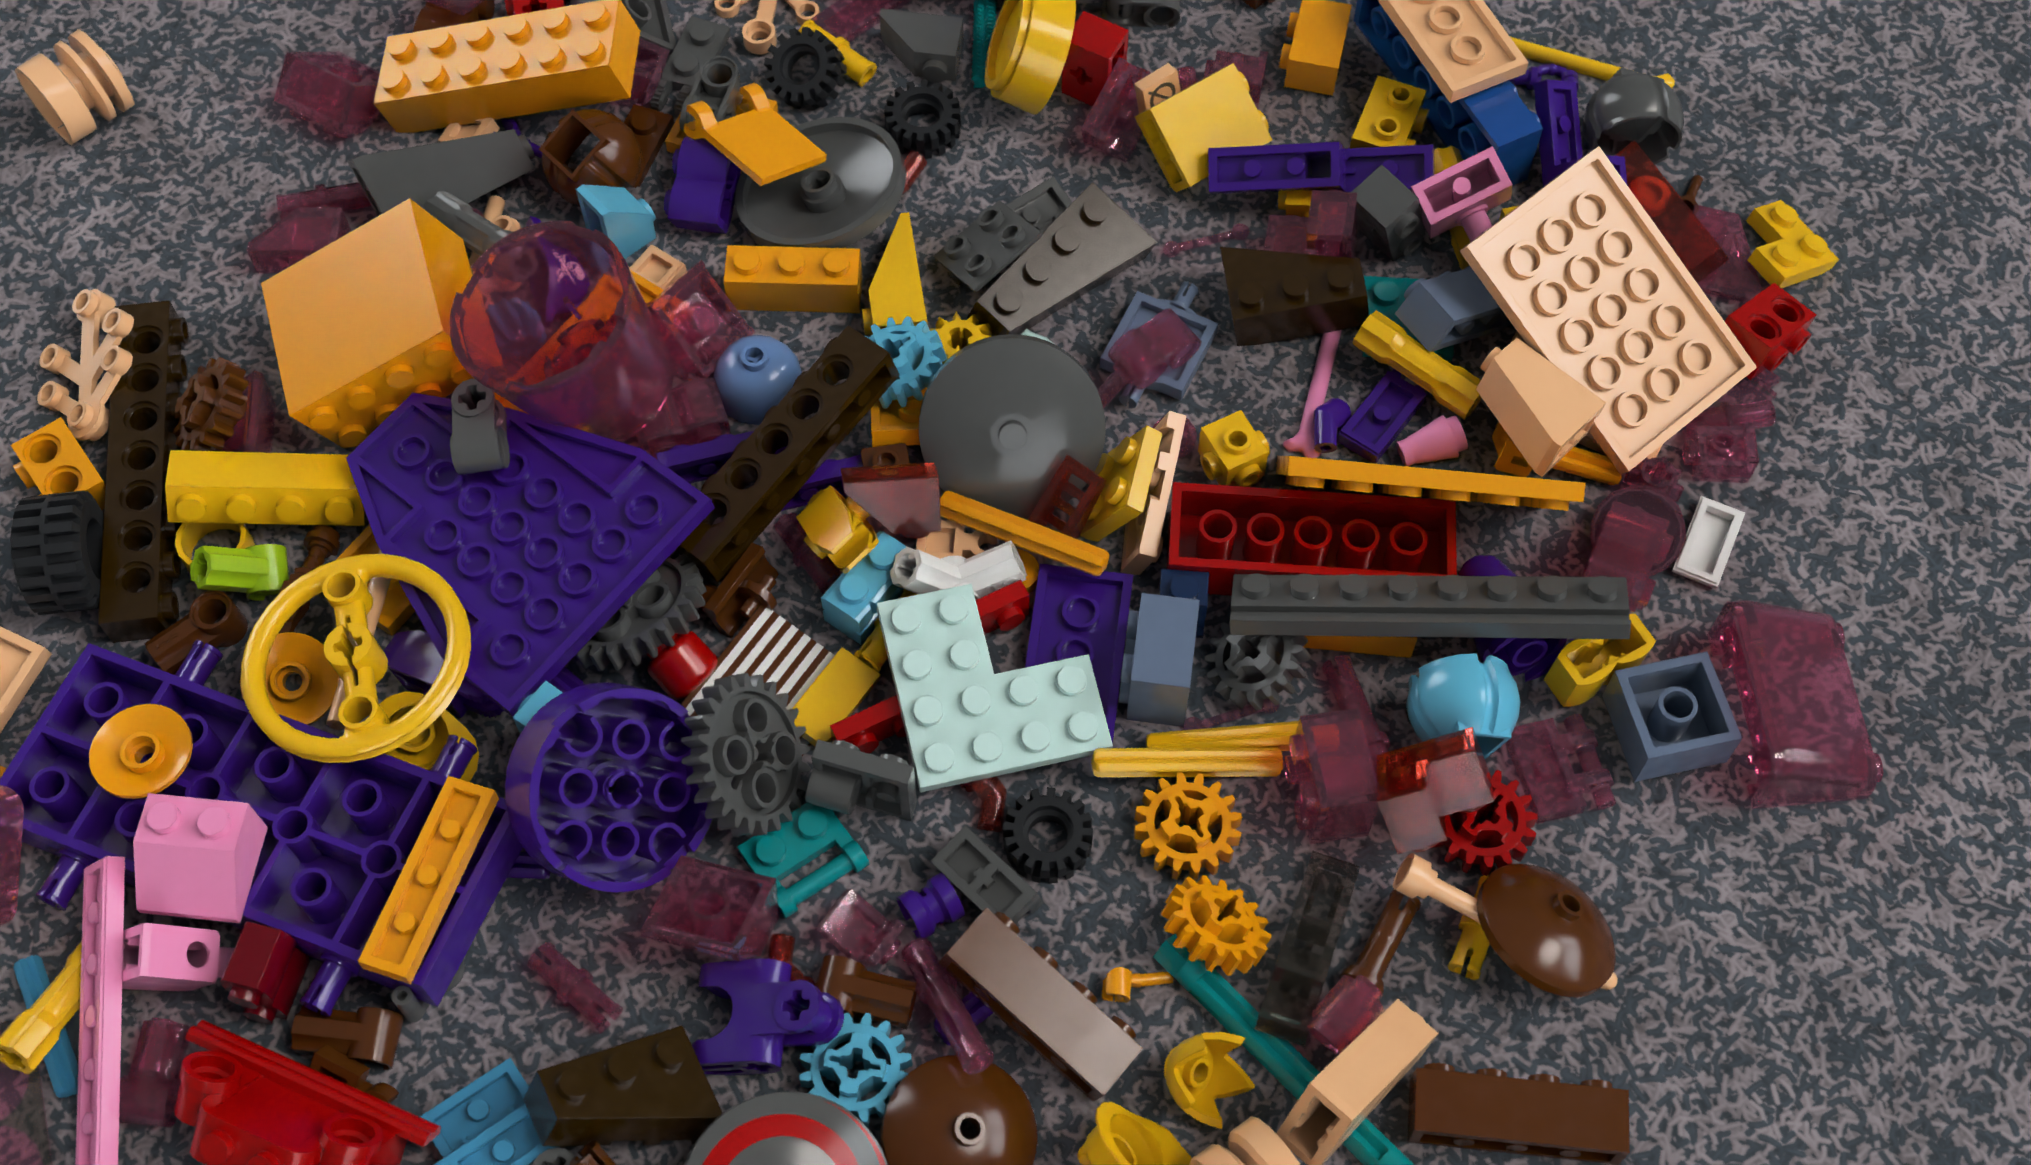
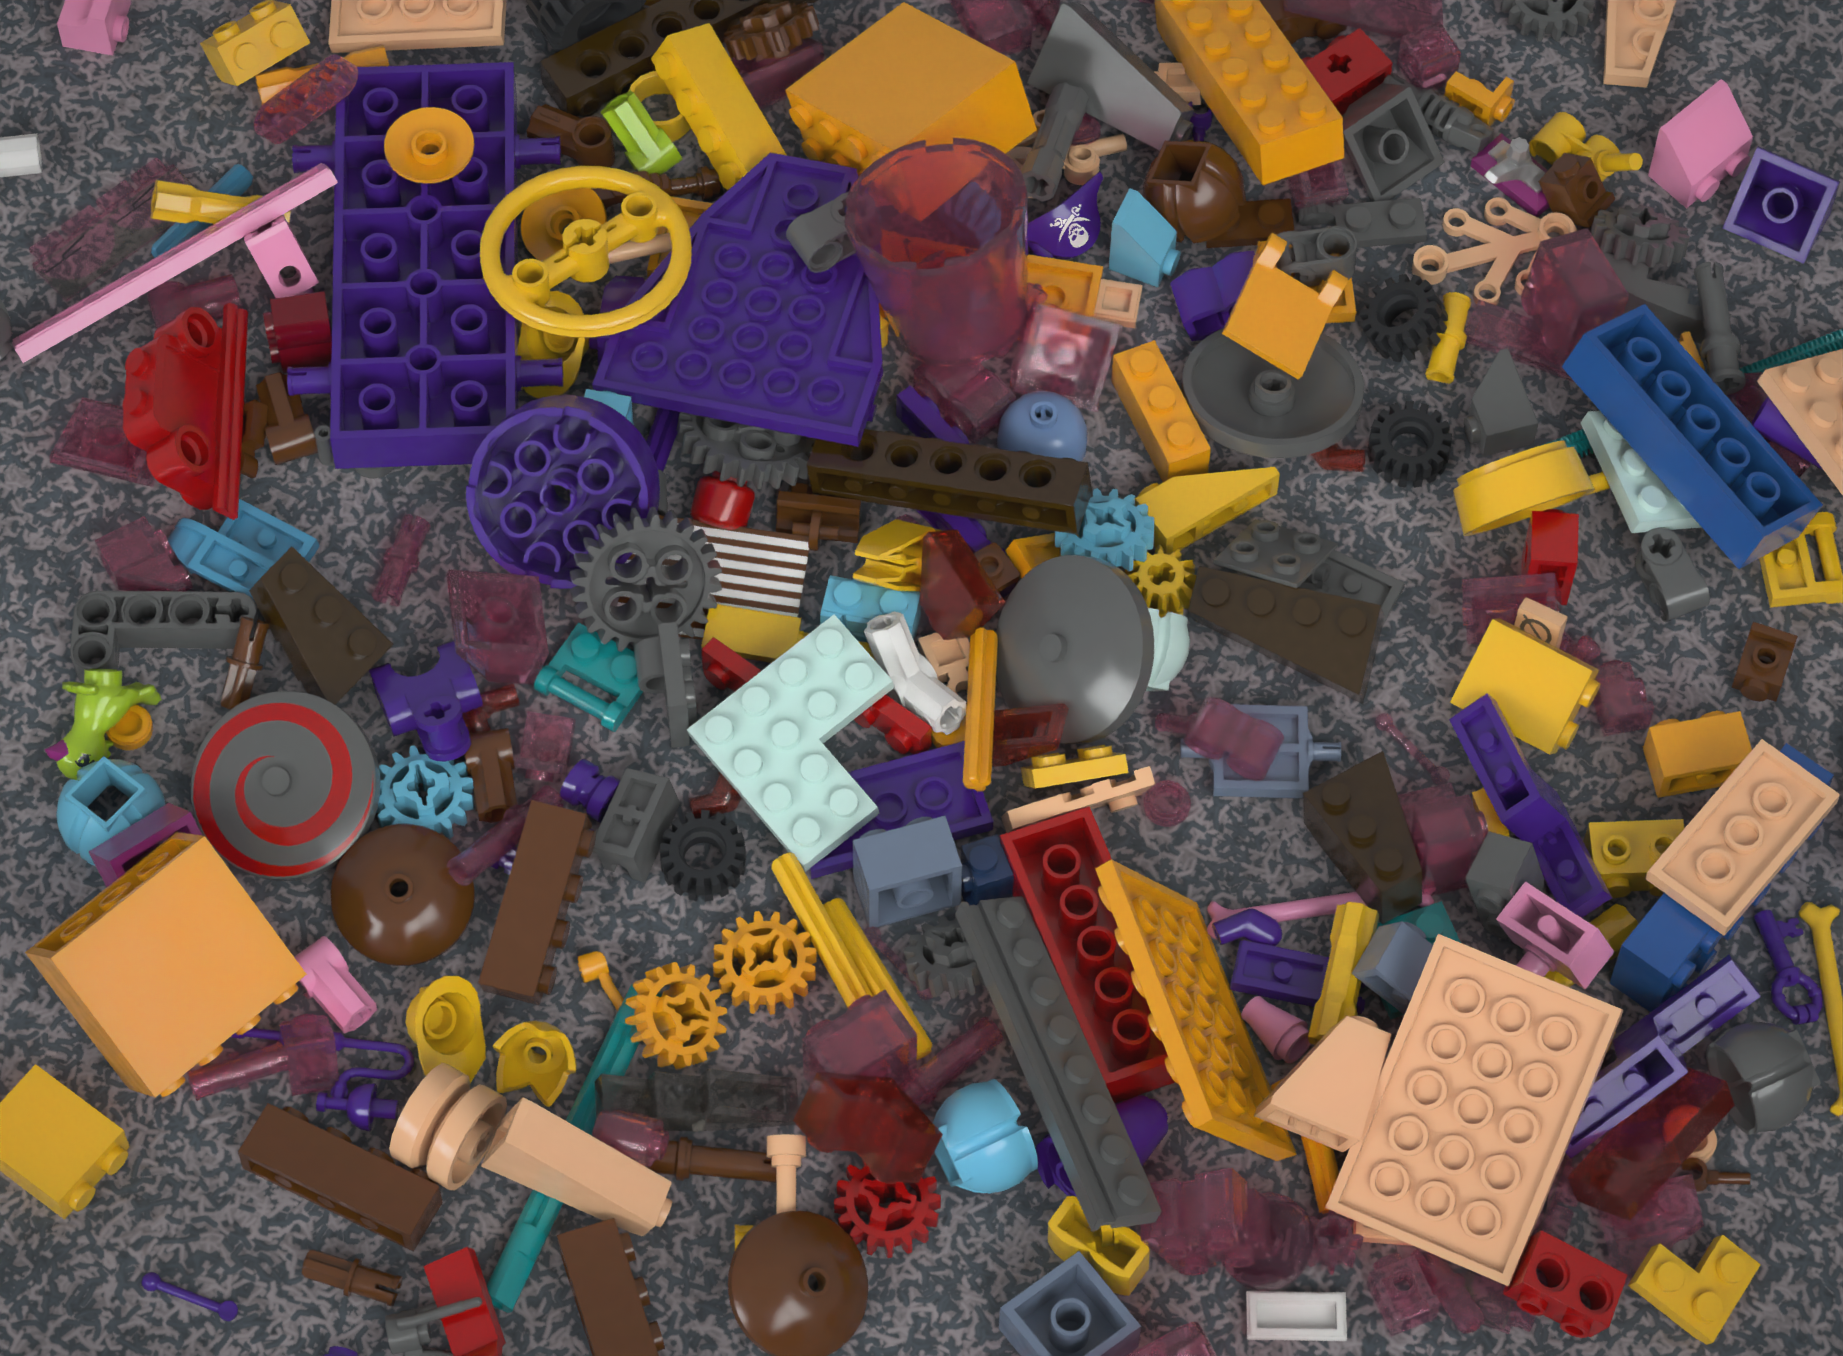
camera: 65 degrees right, 0 degrees up
(196, 857) = (358, 230): bright pink slope -> none
(428, 880) = (415, 397): light orange plate -> none
(1233, 451) = (1167, 852): yellow brick -> none
(1547, 773) = (969, 1243): clear pink plate -> none

